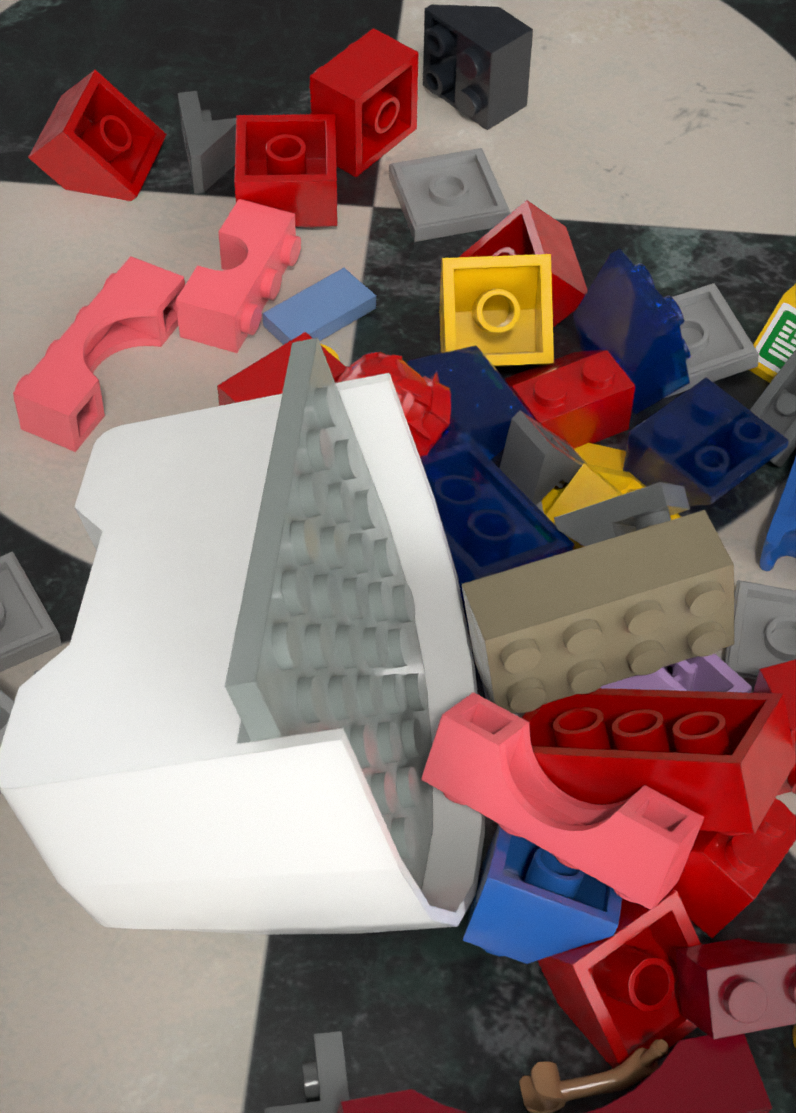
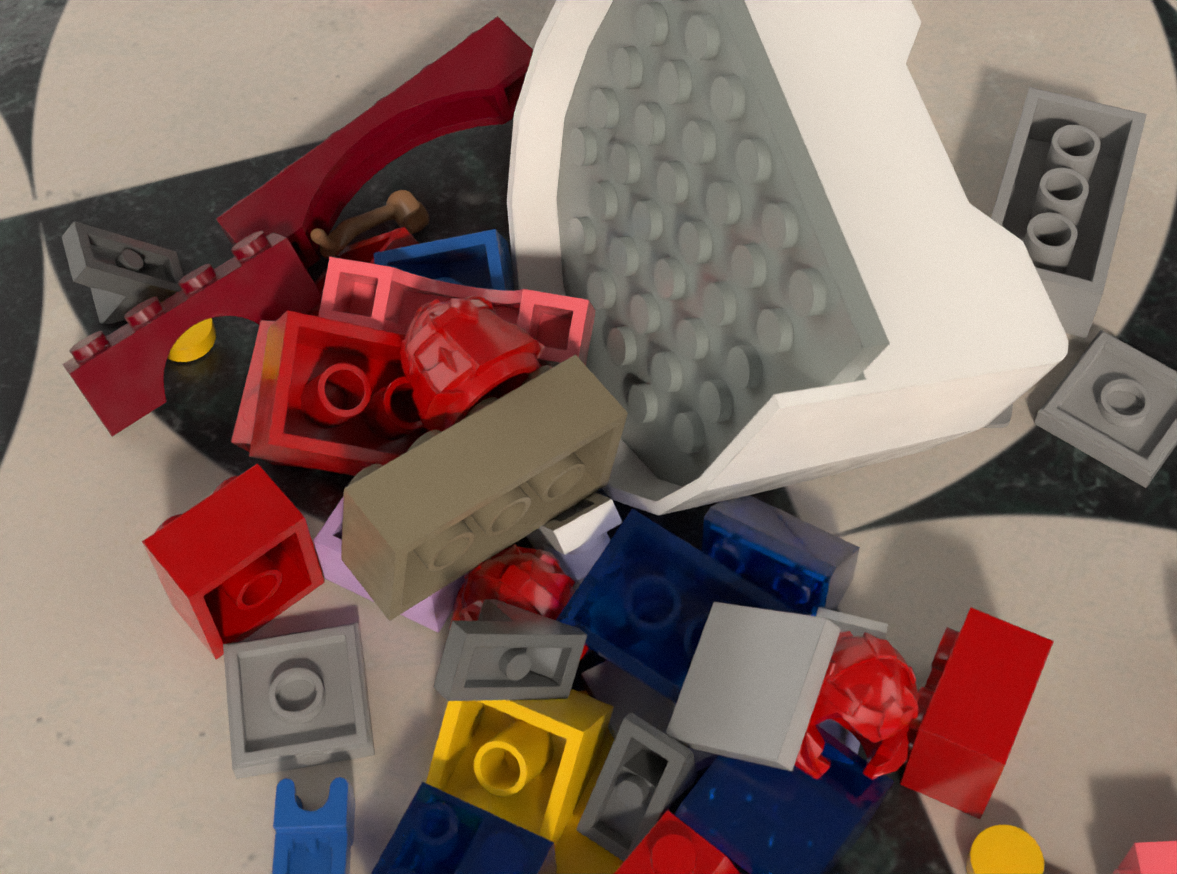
camera: 160 degrees right, 5 degrees up
(456, 420) = (753, 684): none -> light grey tile
(579, 682) = (461, 353): none -> red helmet

